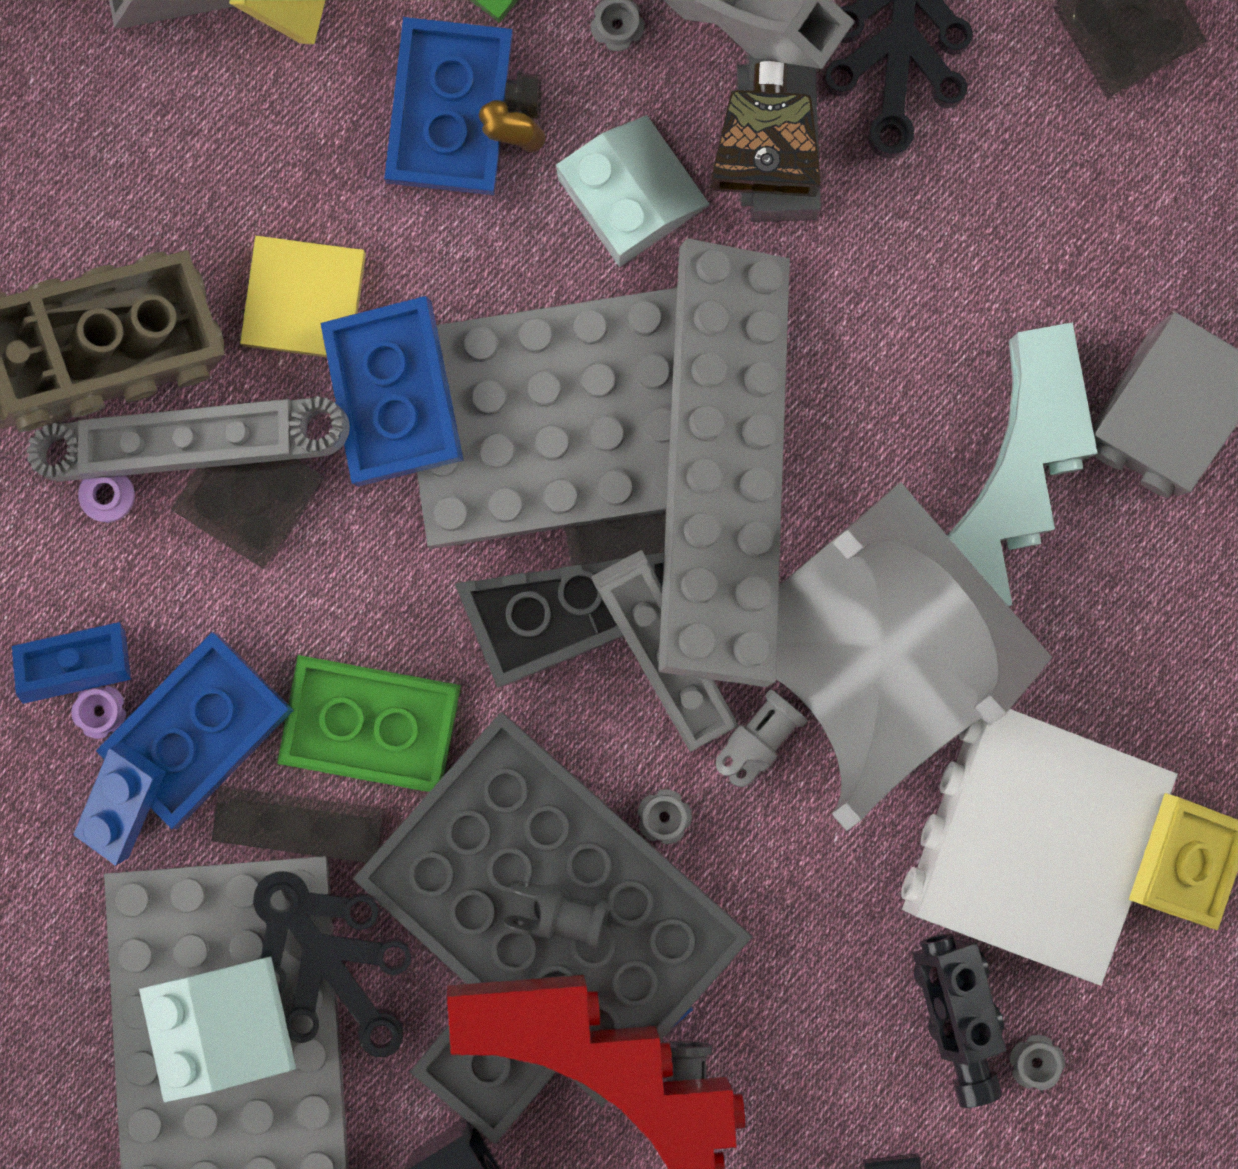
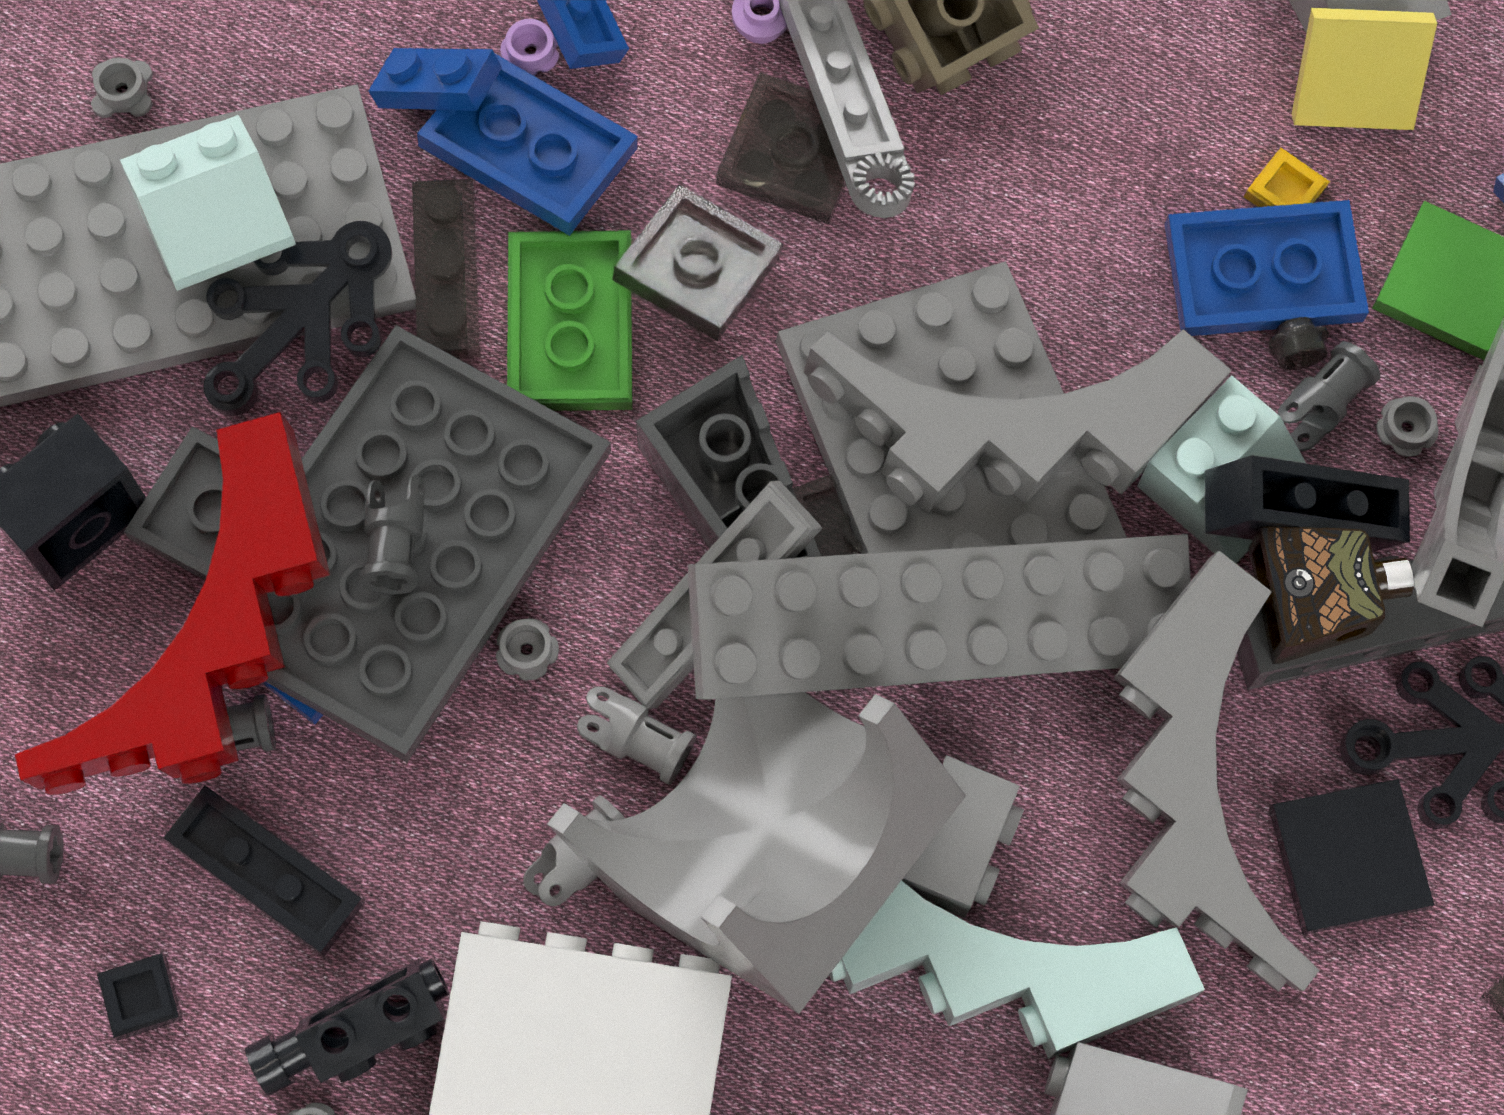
camera: 75 degrees right, 15 degrees down
(47, 1096) = (116, 73): none -> light grey plate
(295, 290) = (1018, 165): light yellow tile -> none
(344, 602) = (697, 262): none -> clear smoke plate
(370, 66) = (1286, 182): none -> yellow tile
(393, 390) = (938, 258): blue plate -> none
(510, 127) = (1260, 331): pearl gold arm -> none
(565, 427) = (1022, 441): none -> light grey arch
(579, 88) = (1325, 397): none -> dark grey piece
(688, 132) = (1295, 494): none -> black brick
(814, 1068) = (264, 870): none -> black plate
(815, 275) = (1174, 775): none -> light grey arch
(868, 829) = (562, 865): none -> light grey piece
(888, 462) = (956, 862): none -> light grey brick
(976, 173) = (1351, 856): none -> black tile

